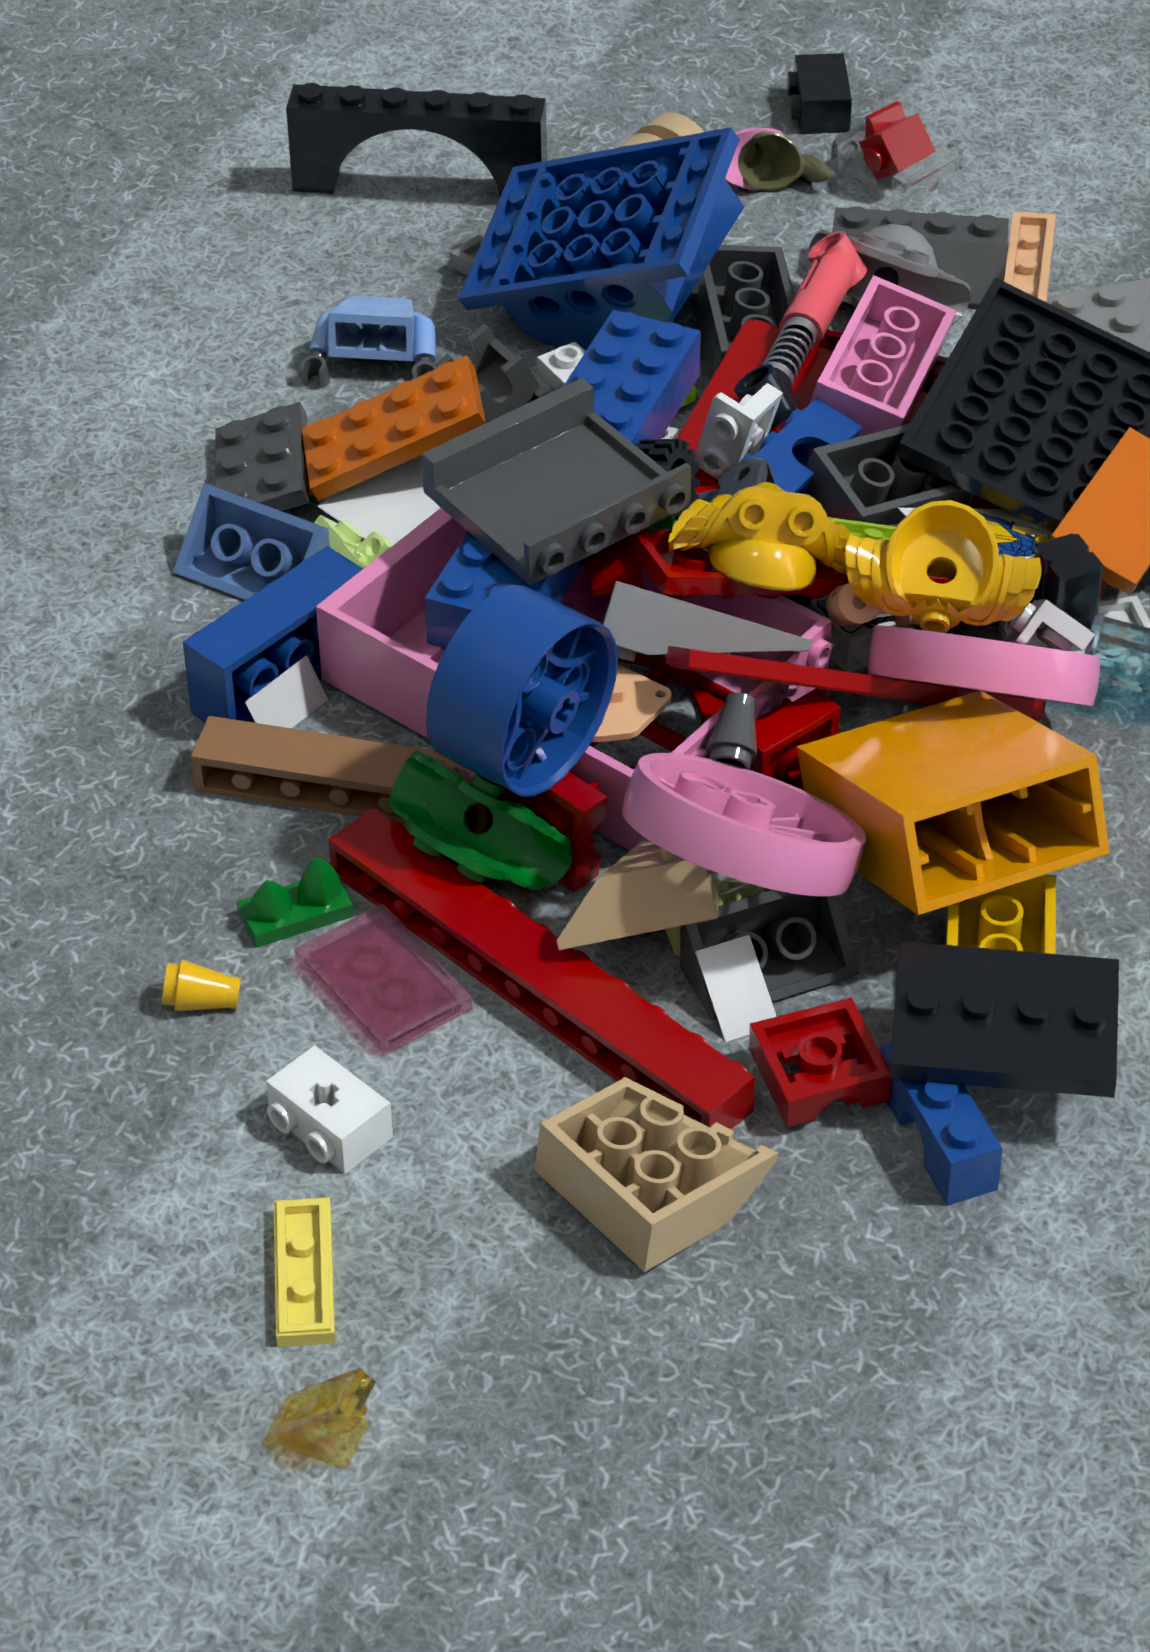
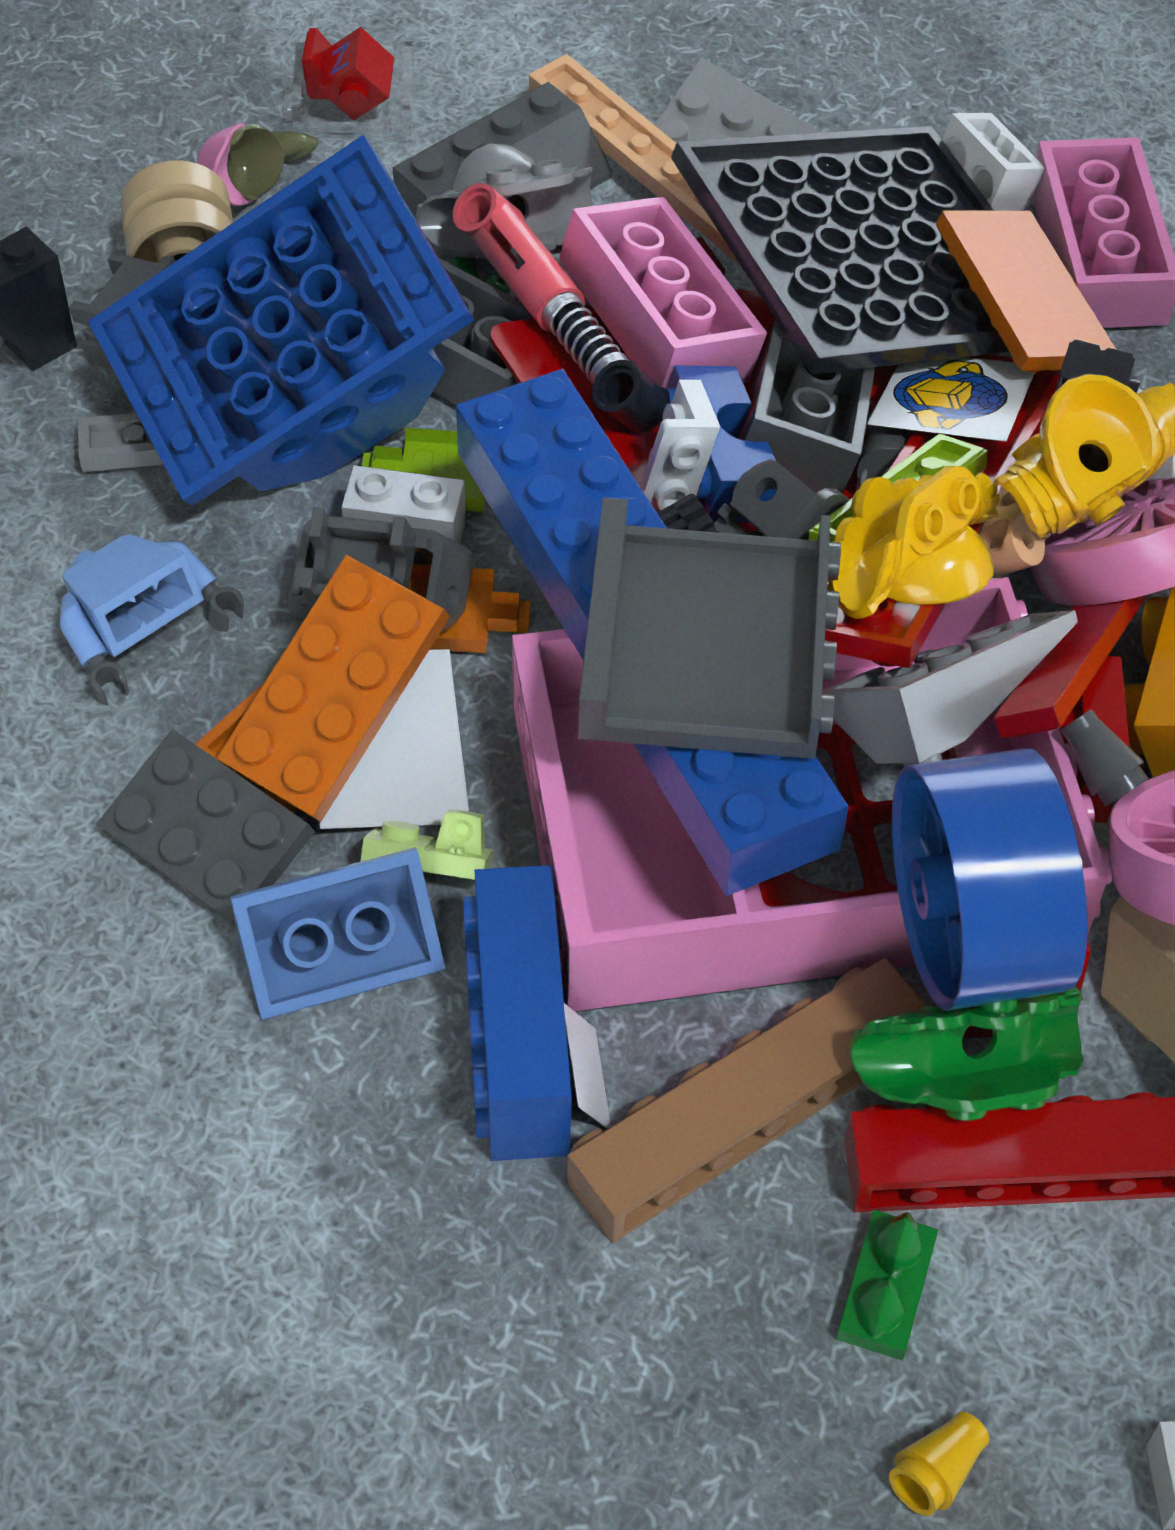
camera: 50 degrees left, 10 degrees up
(383, 979) = (1060, 1282): clear pink tile -> none
(820, 93) = (198, 64): black brick -> none

